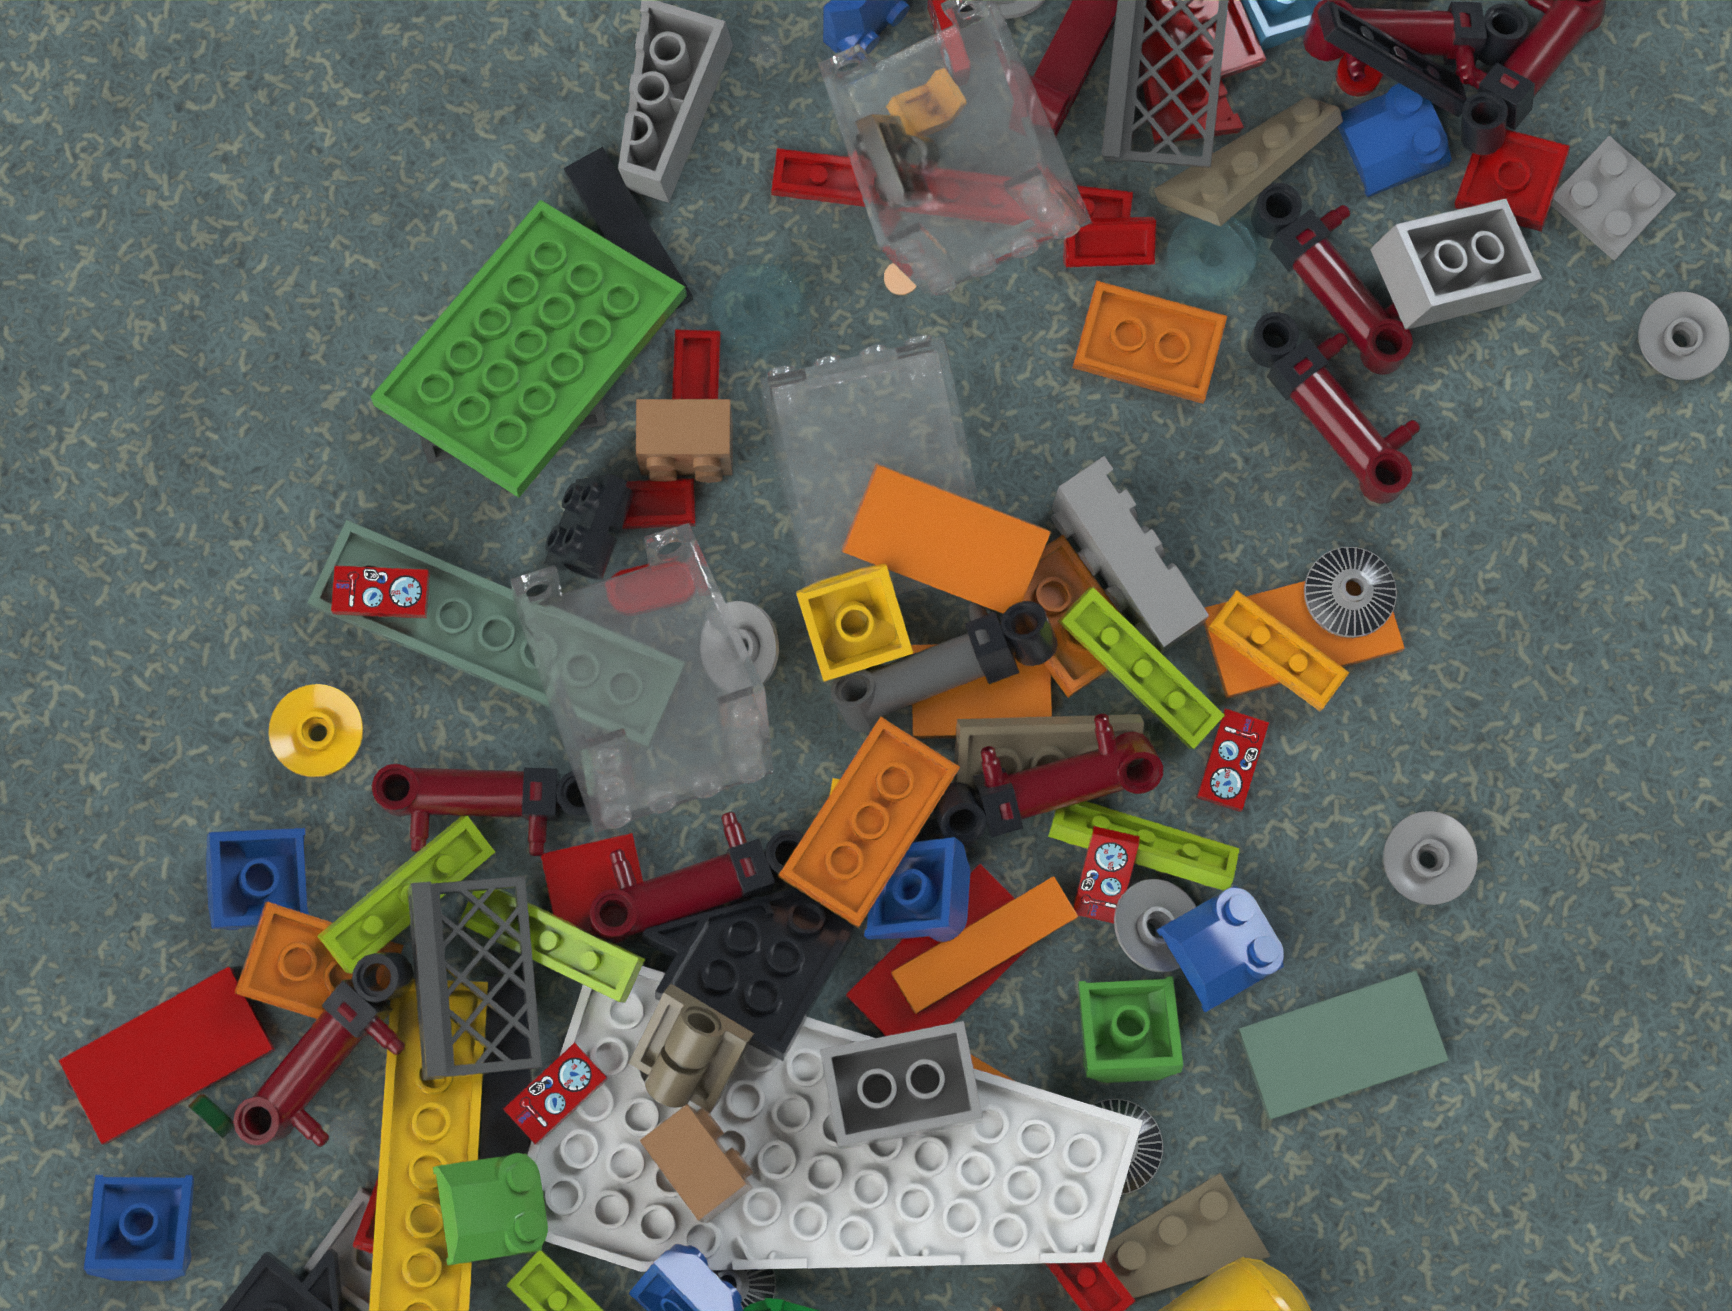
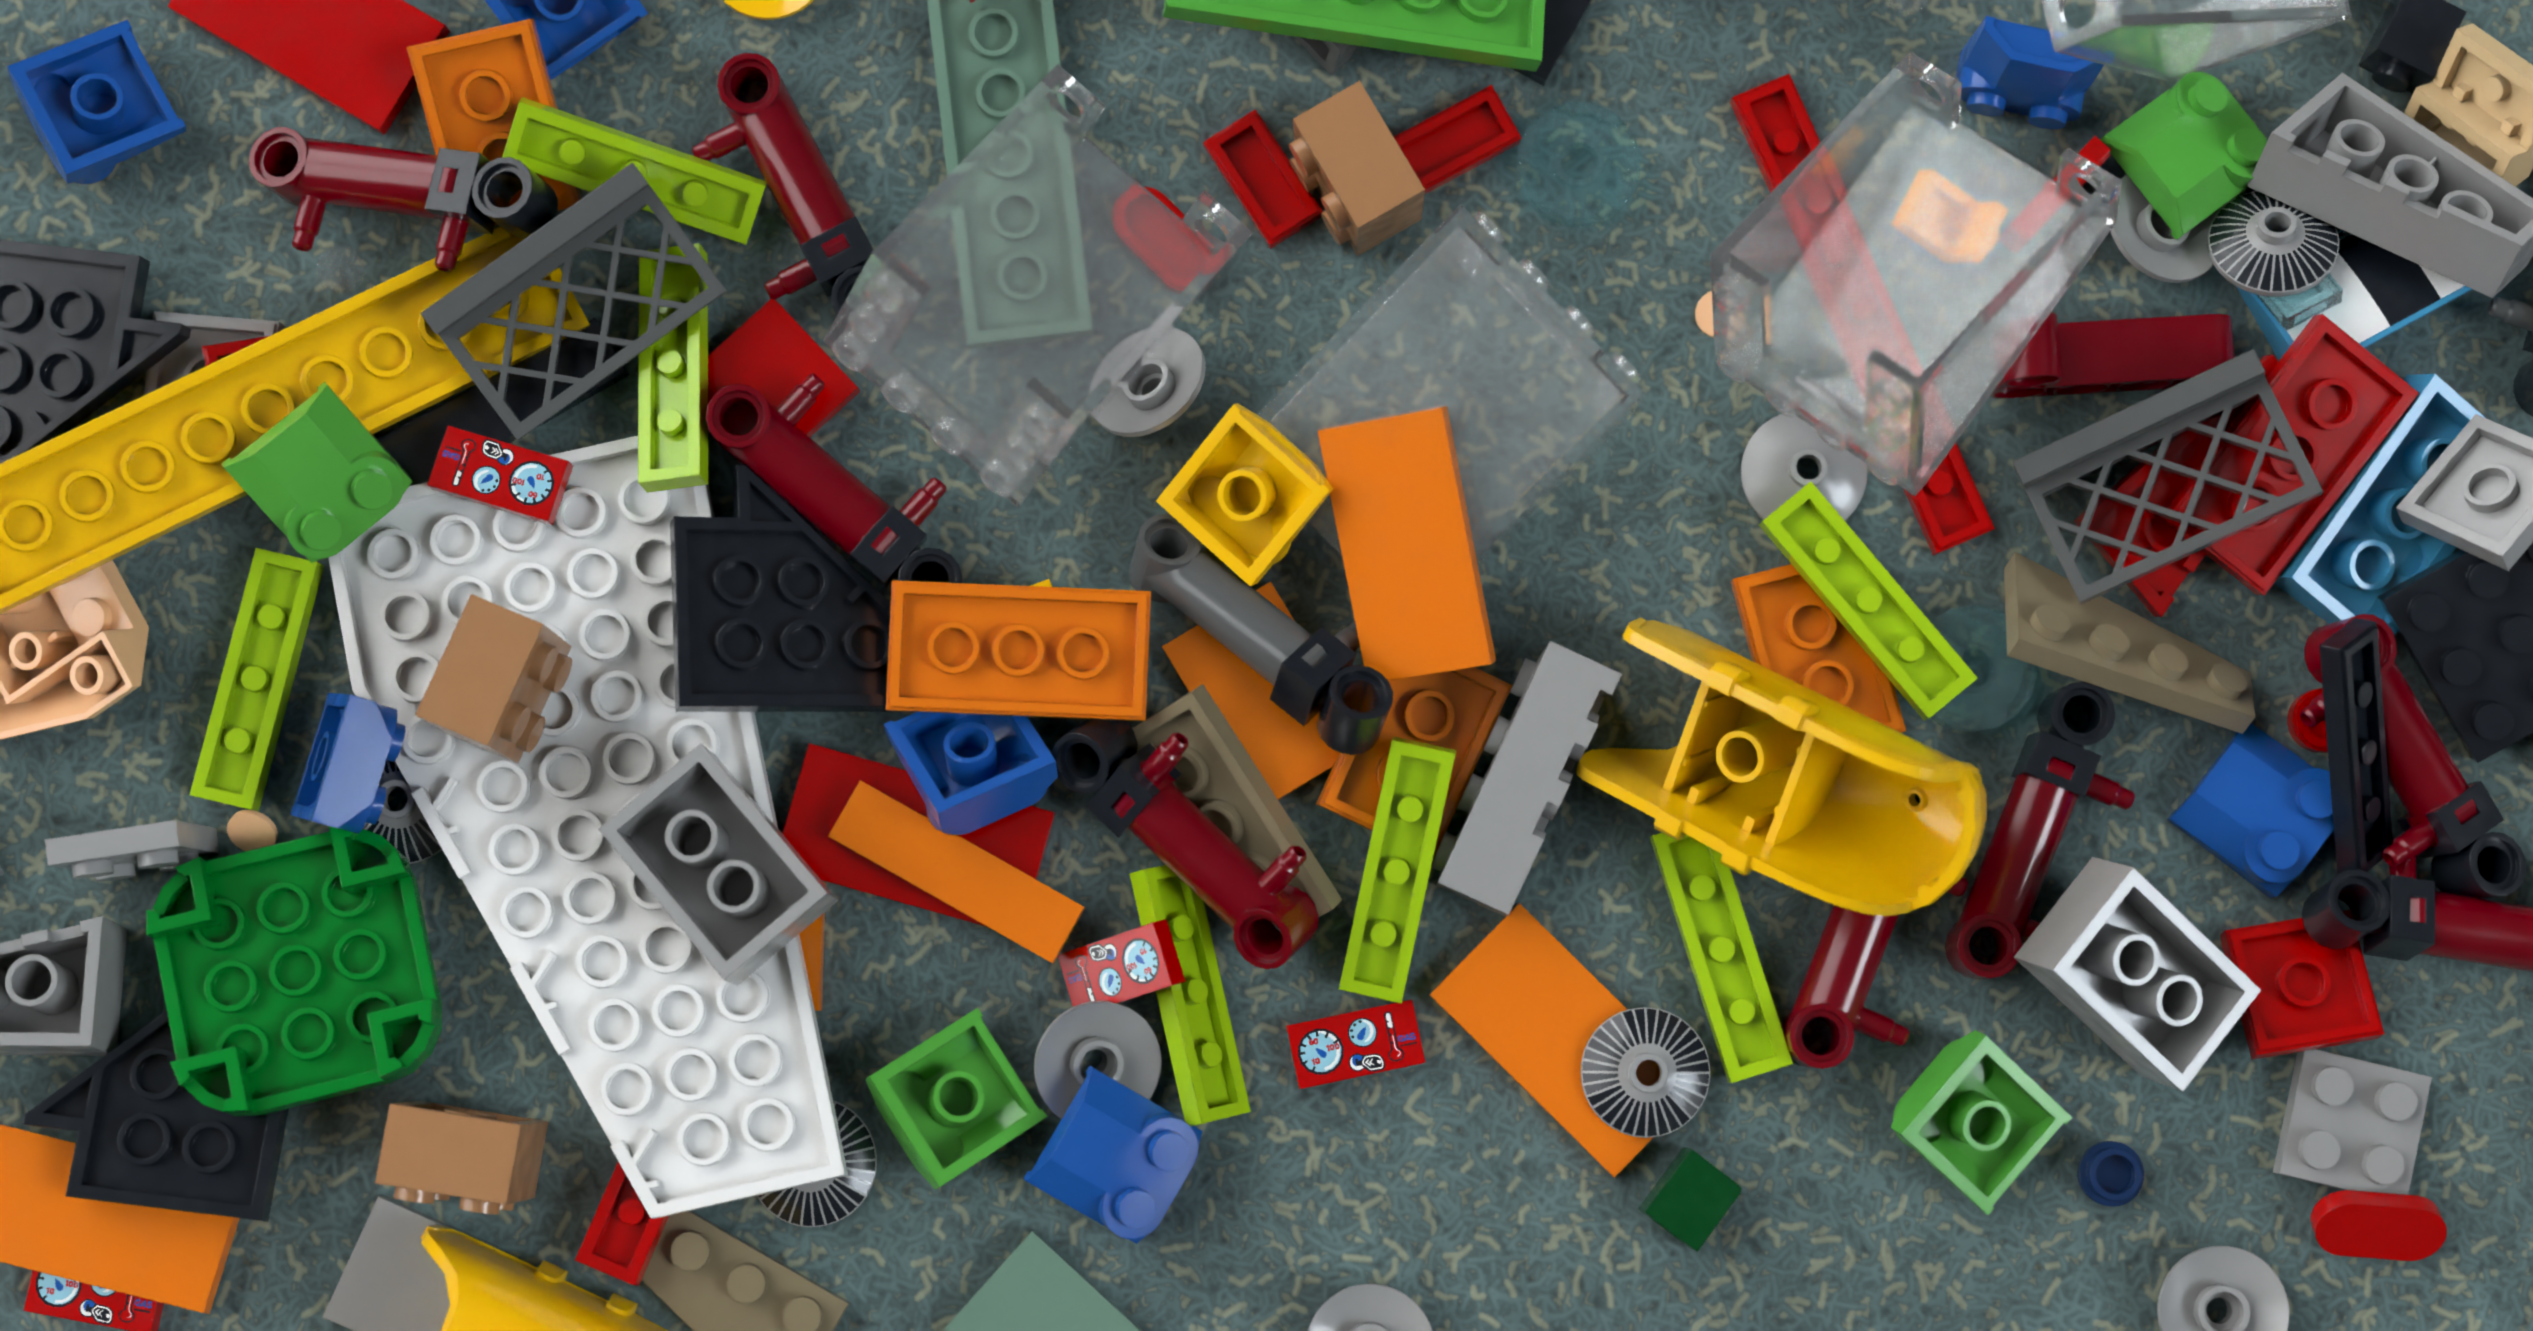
camera: 65 degrees right, 5 degrees up
(211, 1115) = (265, 105): dark green tile -> none
(582, 537) = (1212, 112): black plate -> none
(689, 1051) = (622, 596): dark tan plate -> none
(886, 145) = (1852, 194): clear smoke plate -> none
(1031, 305) = (1771, 472): none -> light grey dish
(1112, 243) = (1913, 539): red tile -> none
(1136, 290) = (1868, 601): none -> lime plate
(1232, 391) = (1798, 785): none -> yellow animal
(1278, 650) = (1519, 1024): light orange tile -> none
(1299, 503) = (1722, 957): none -> lime plate
(1443, 609) = (1690, 1198): none -> dark green panel
(1488, 410) = (1977, 1118): none -> bright green slope
(1564, 353) = (2110, 1173): none -> dark blue plate
(1680, 217) = (2378, 1225): none -> red tile

